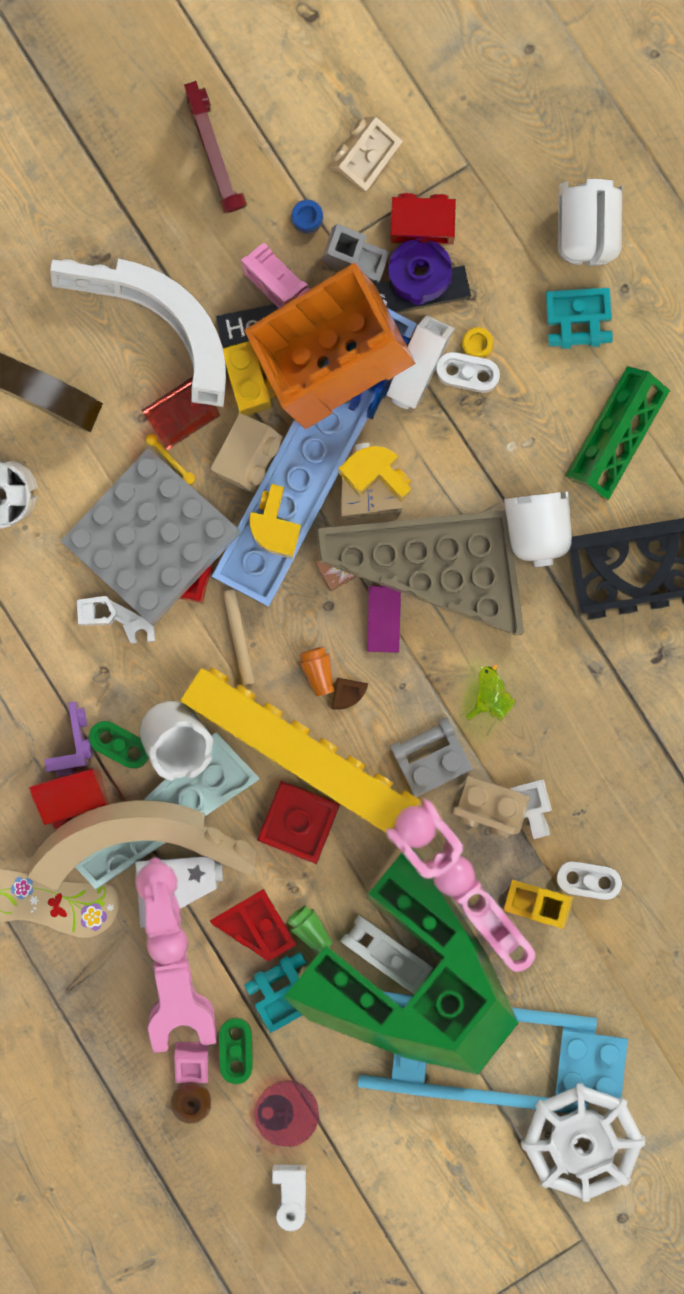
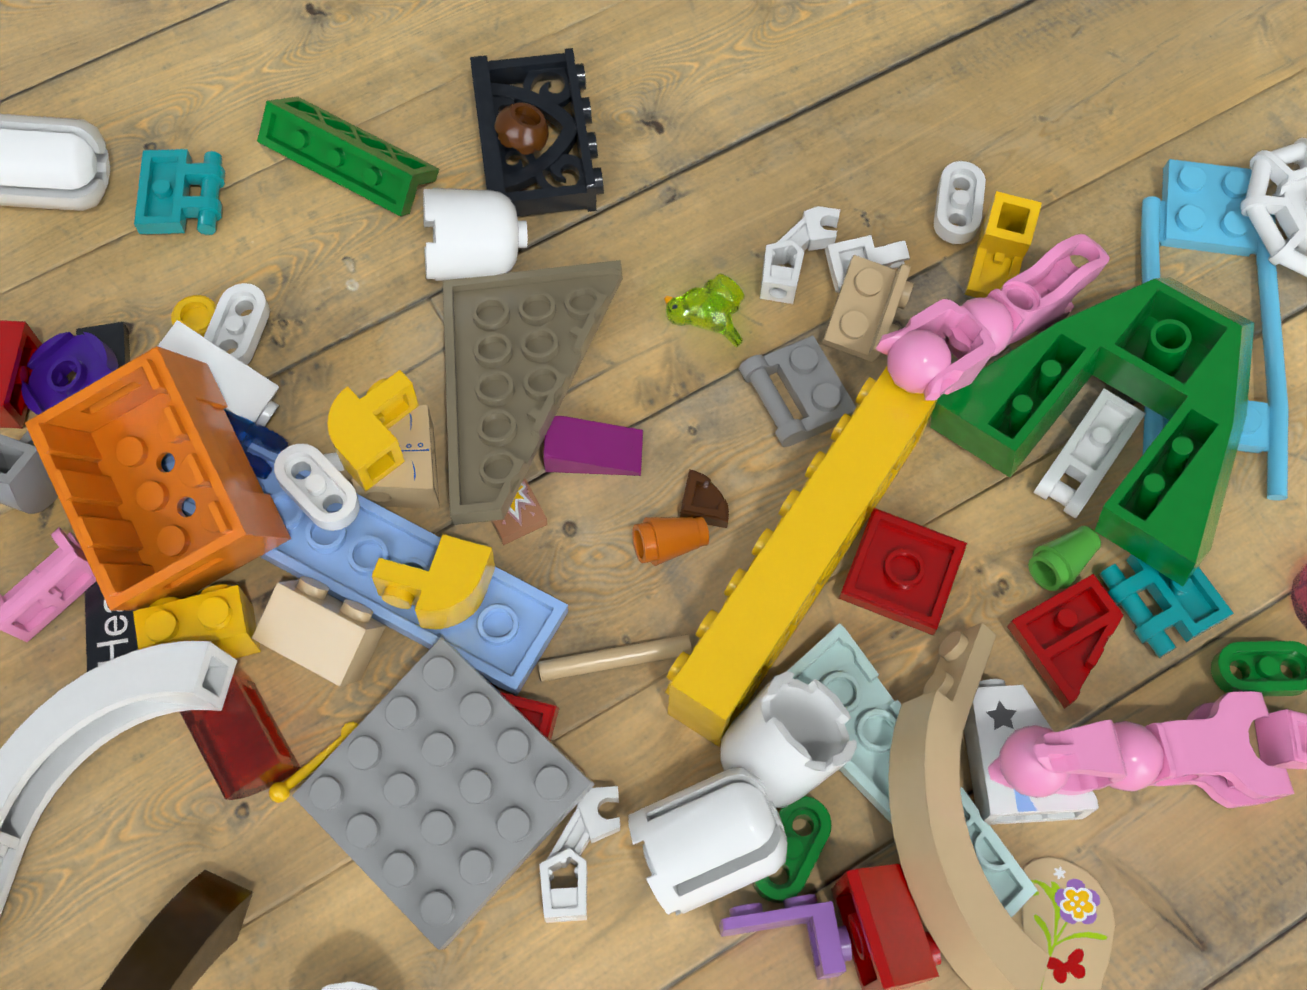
camera: 90 degrees left, 20 degrees down
(116, 692) = (709, 840): none -> white cylinder
(339, 442) = (319, 489): none -> white plate
(557, 765) = (781, 282): none -> white piece
(622, 551) = (522, 128): none -> reddish brown plate

